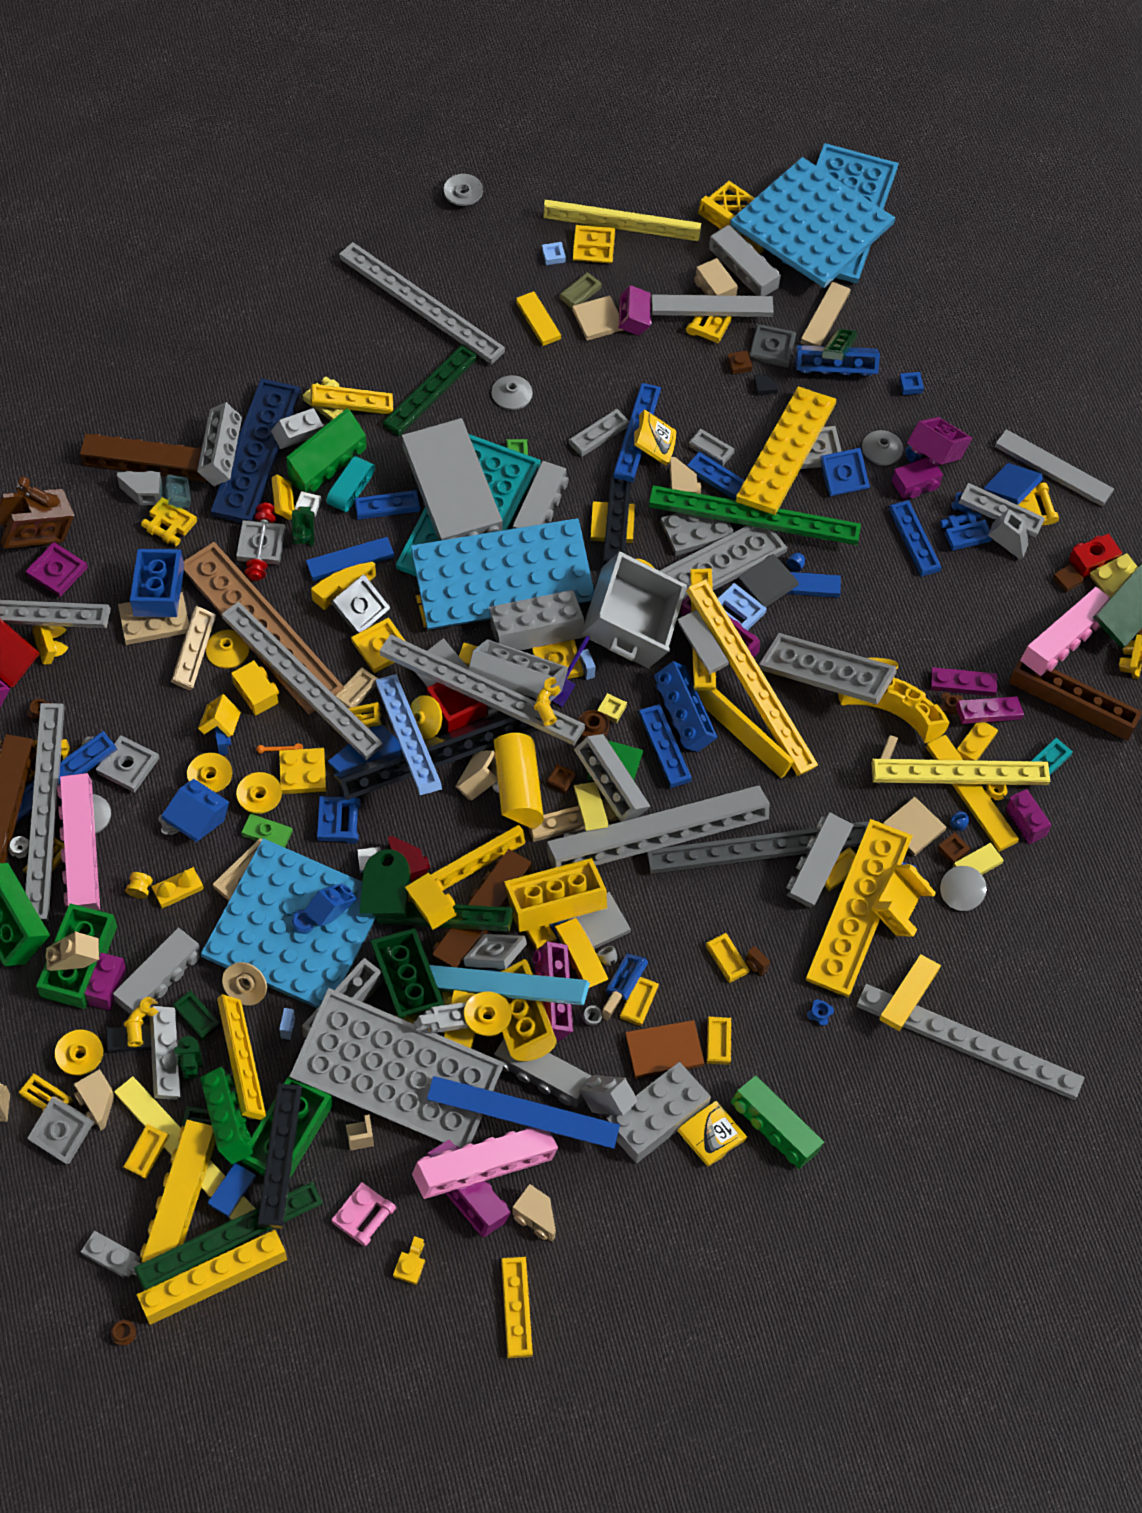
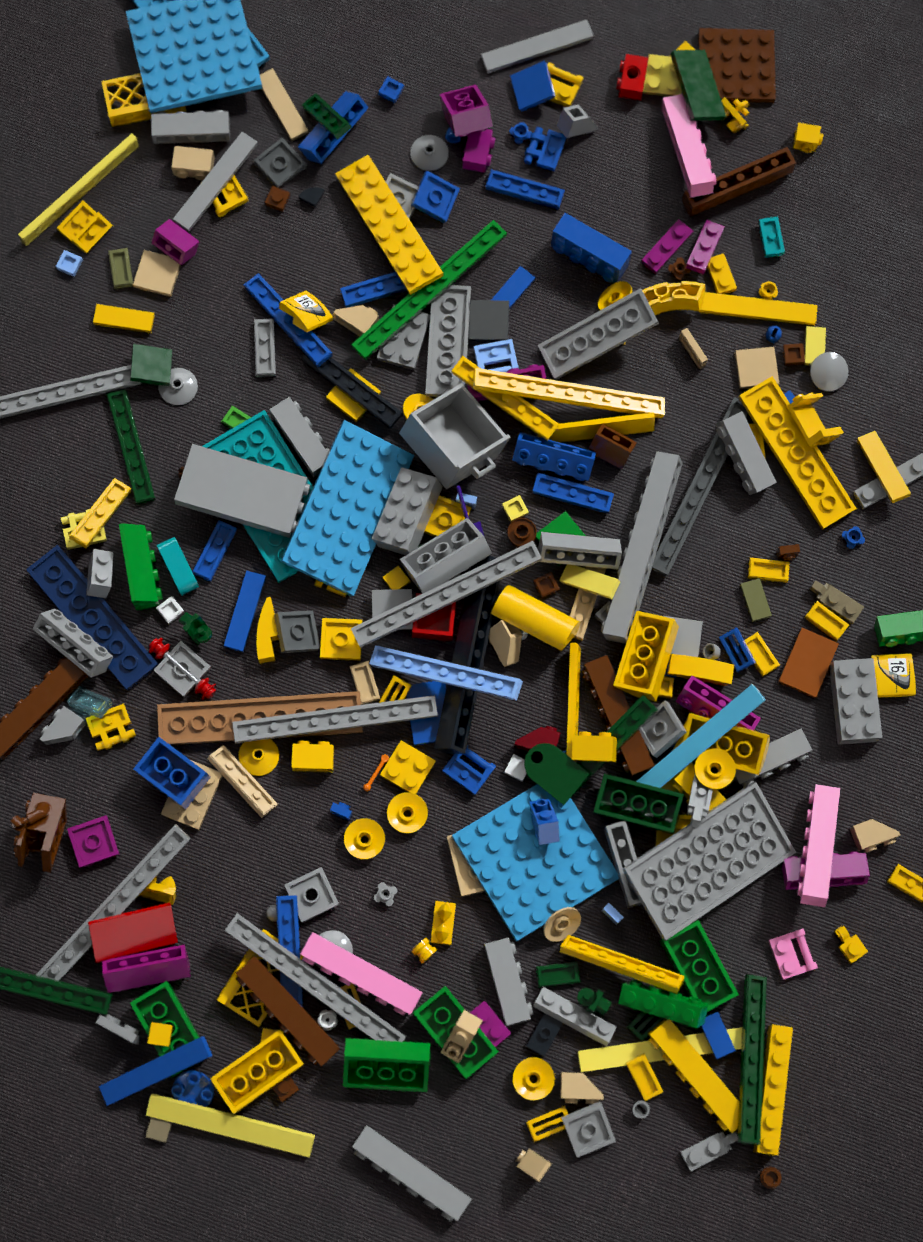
camera: 55 degrees left, 15 degrees up
(34, 707) = (208, 931): reddish brown plate -> none
(109, 1166) = (638, 1112): none -> light grey hinge
(135, 1021) = (540, 1023): yellow piece -> none
(195, 810) = (393, 870): blue slope -> none
(220, 713) = (321, 800): yellow panel -> none
(259, 827) = (441, 827): bright green plate -> none
(280, 1156) = (722, 985): black tile -> none
(283, 496) = (153, 625): yellow tile -> none
(302, 922) = (543, 851): blue tile -> none
(360, 1134) = (732, 917): tan panel -> none
(427, 716) = (431, 643): yellow dish -> none
(512, 358) = (151, 365): none -> dark green tile
(523, 1112) = (801, 794): blue tile -> none
(543, 703) = (497, 559): yellow piece -> none
(608, 1095) = (827, 727): light grey brick -> none
(611, 1005) = (753, 676): tan tile -> none
(688, 964) = (755, 600): none -> olive tile
(703, 642) = (519, 406): light grey tile -> none
(711, 447) = (339, 275): light grey tile -> none
(734, 747) = (612, 446): none -> reddish brown brick
(745, 1038) = (837, 601): none -> dark tan hinge
(796, 561) = (485, 288): blue hinge -> none
(902, 615) = (590, 248): none -> blue brick
(960, 772) = (743, 305): light yellow tile -> none
(995, 506) = (549, 112): light grey plate -> none
(1028, 816) = (806, 286): magenta brick -> none
(1068, 578) = (635, 109): reddish brown tile -> none

